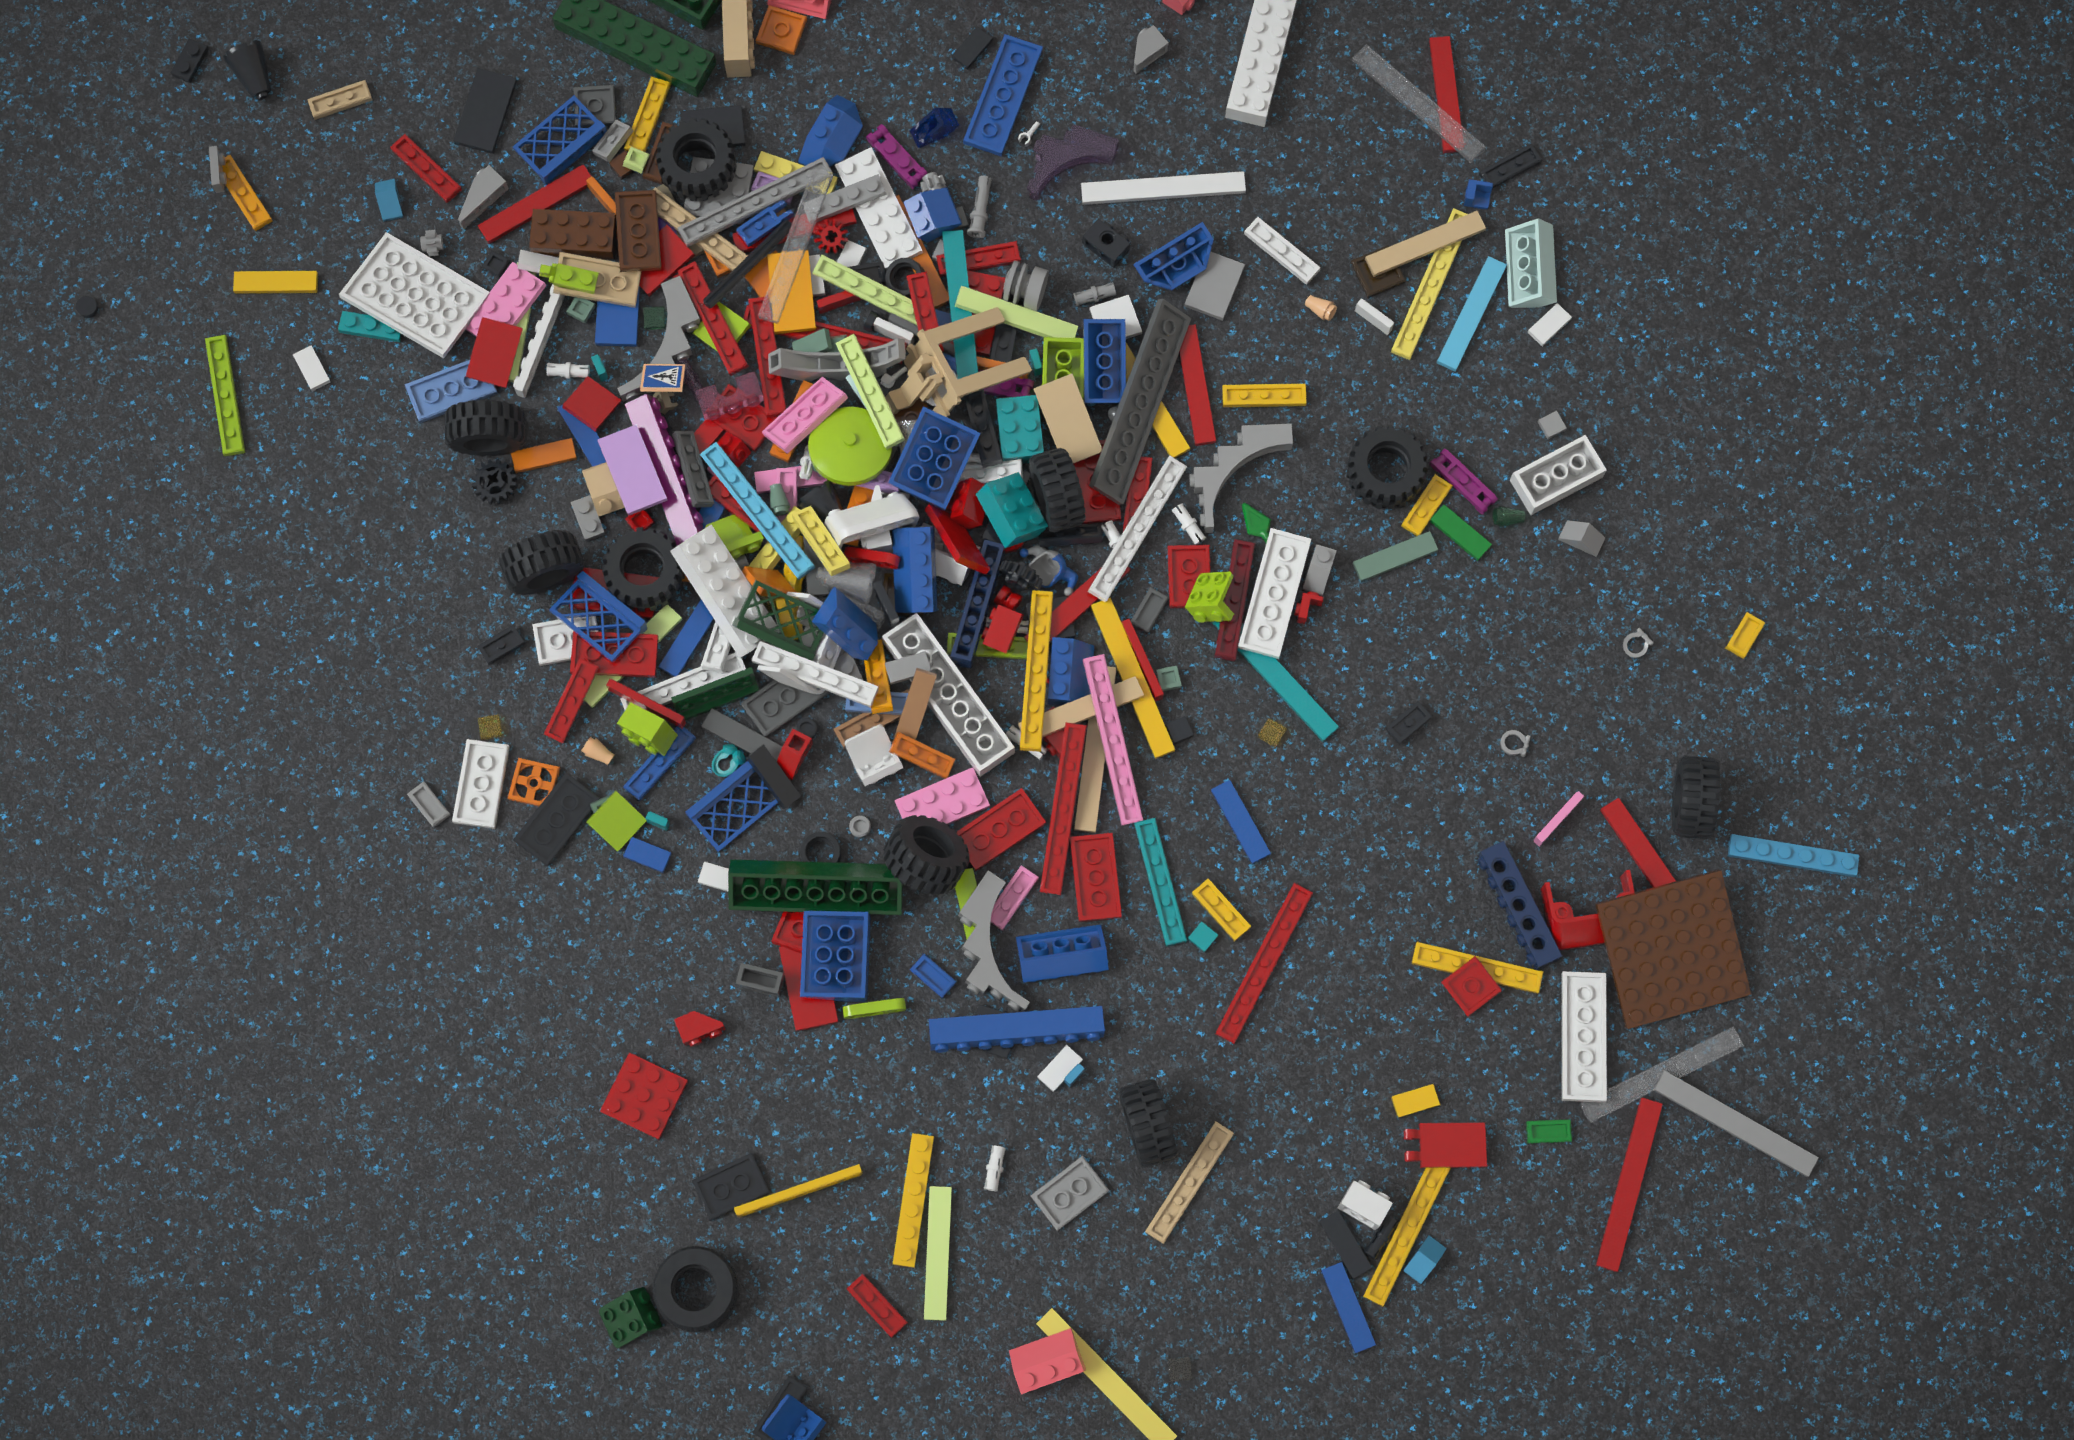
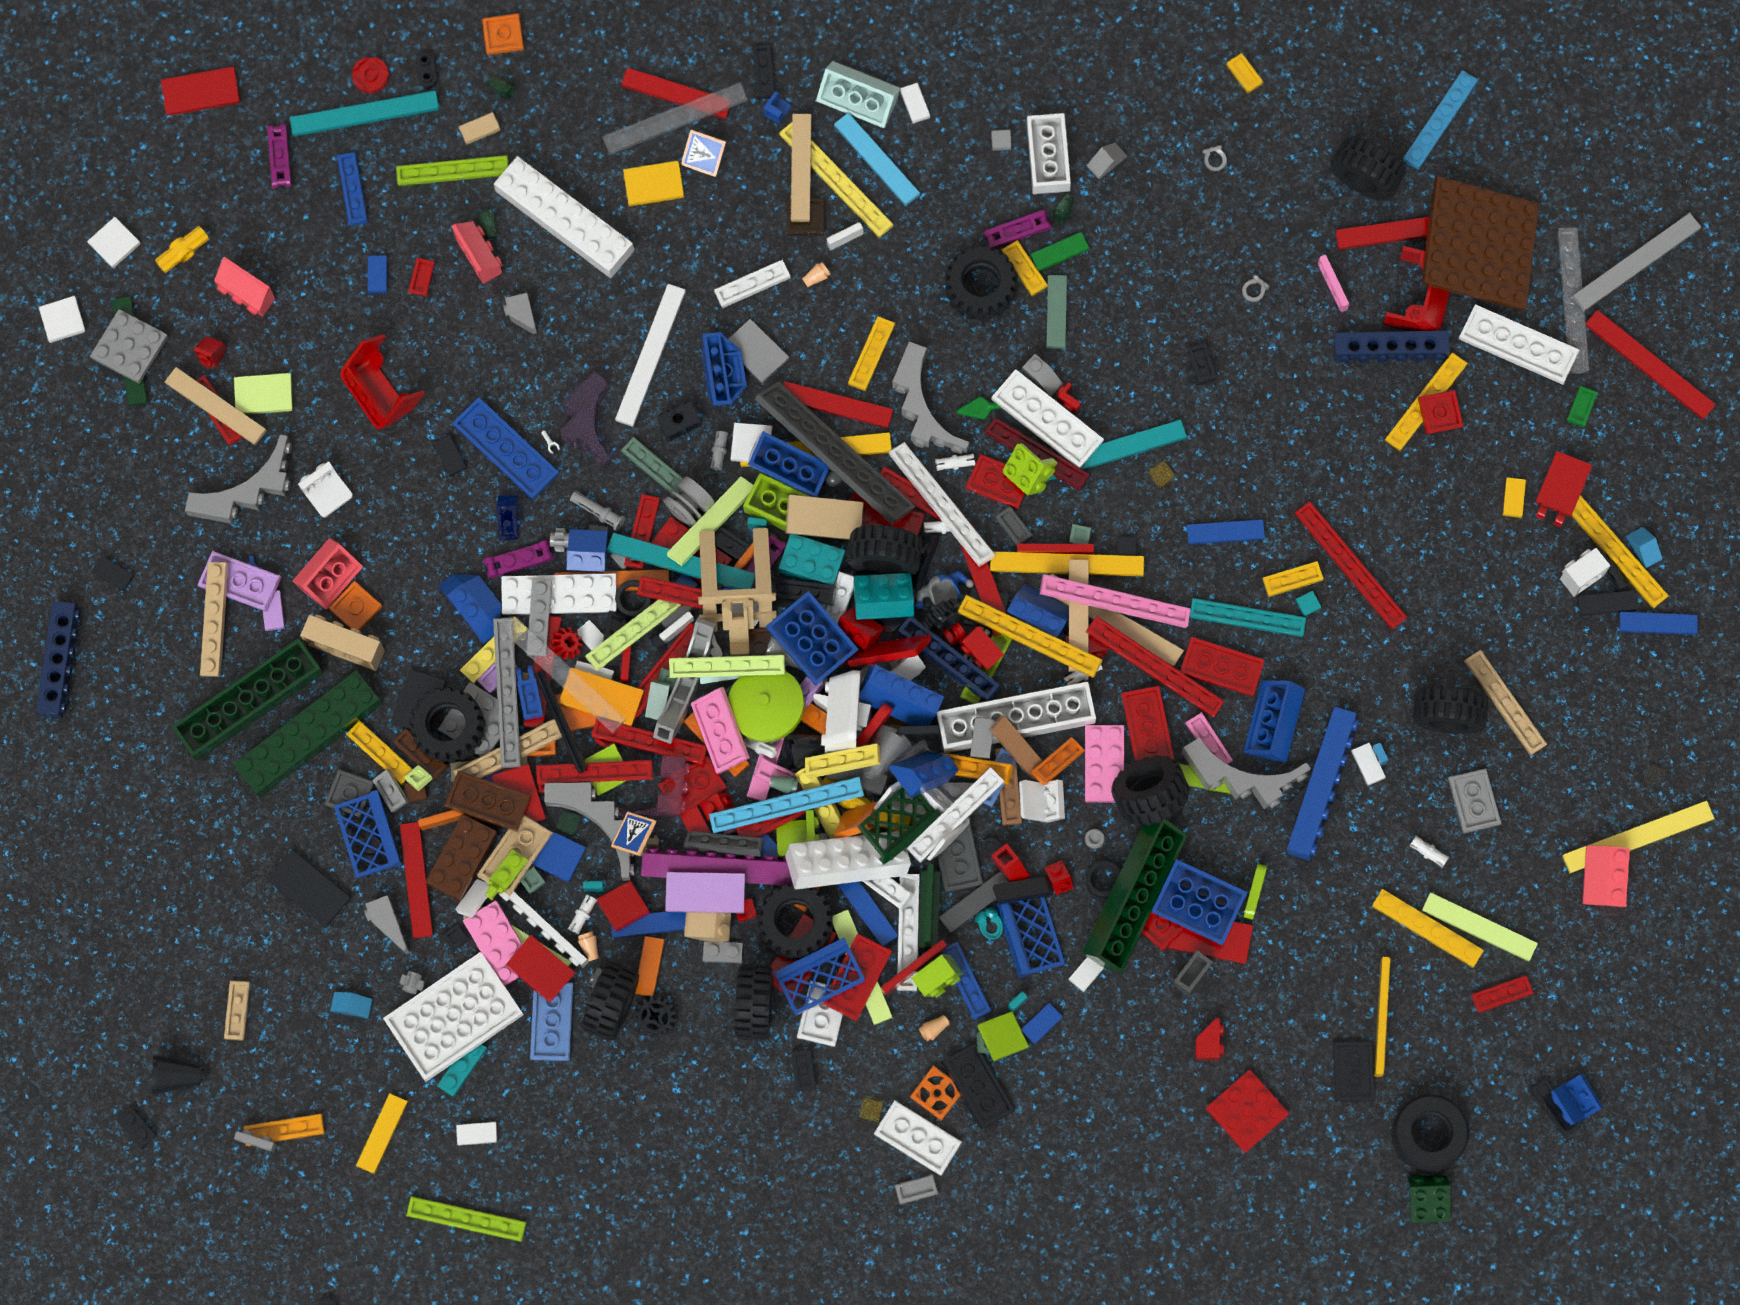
camera: 60 degrees left, 0 degrees up
(426, 168) = (337, 961): red tile -> none
(539, 389) = (589, 945): none -> light nougat cone
(571, 700) = (881, 1030): red tile -> none
(803, 808) = (1059, 877): none -> red bracket
(933, 976) = (1247, 833): blue tile -> none
(1051, 237) = (652, 465): none -> sand green tile
(1342, 113) = (653, 183): none -> yellow tile
(1395, 144) = (703, 153): none -> piece

